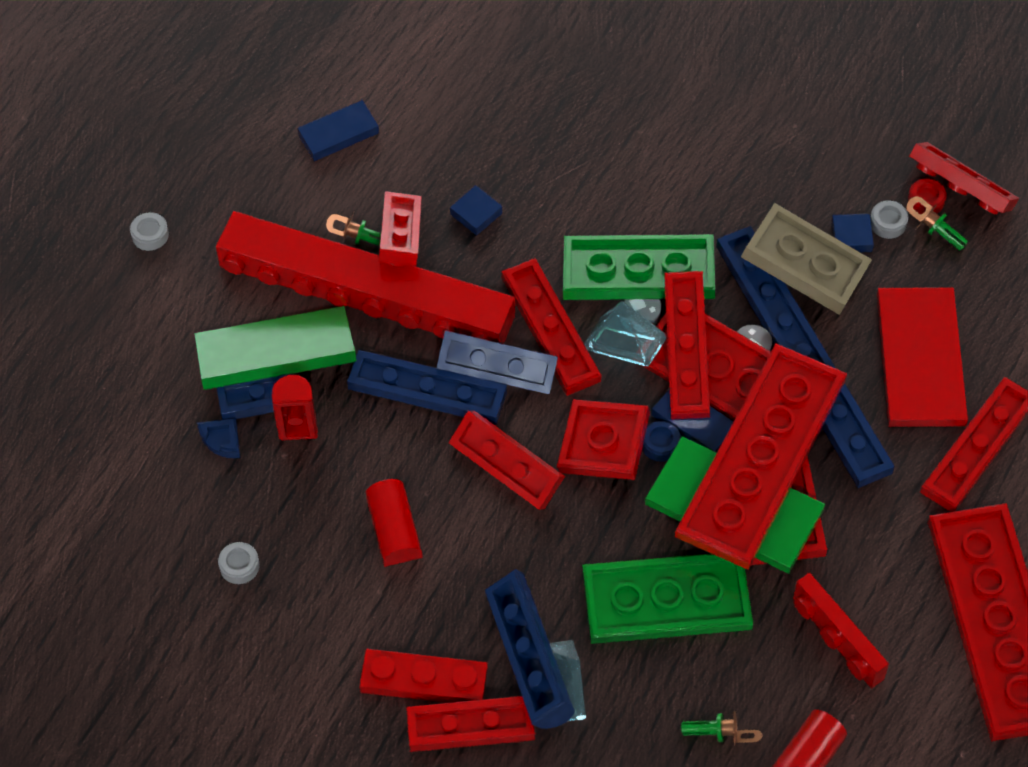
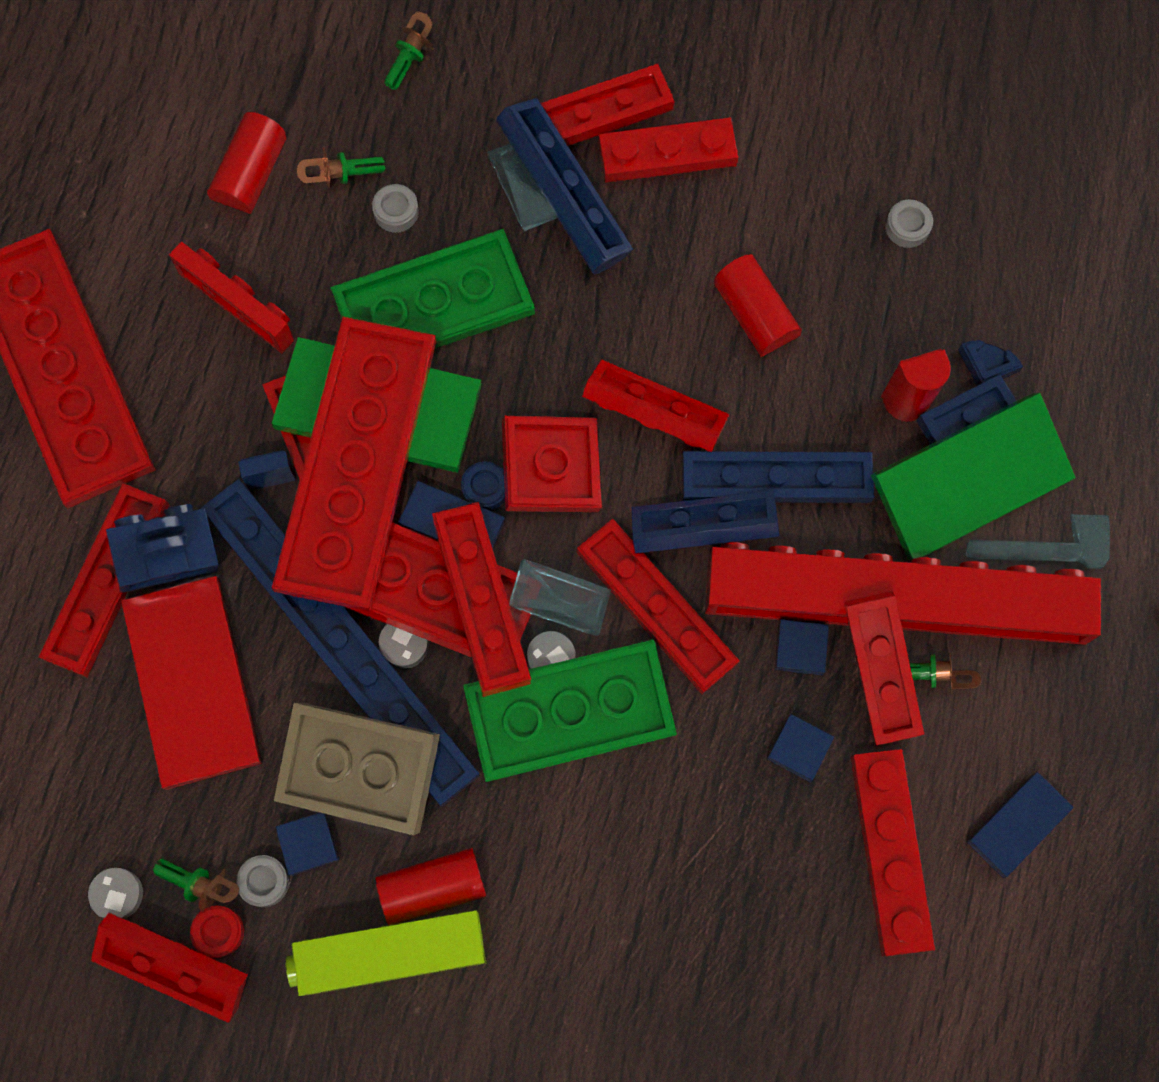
camera: 160 degrees right, 15 degrees up
(204, 286) = (1090, 545): none -> clear light blue piece
(434, 136) = (892, 853): none -> red plate
(454, 265) = (801, 647): none -> dark blue tile
(680, 685) = (395, 208): none -> light grey tile
(768, 186) = (430, 887): none -> red brick
(808, 150) = (386, 953): none -> lime brick
(835, 484) = (266, 470): none -> dark blue tile
(929, 434) = (161, 548): none -> dark blue brick
(997, 234) = (115, 892): none -> light grey tile

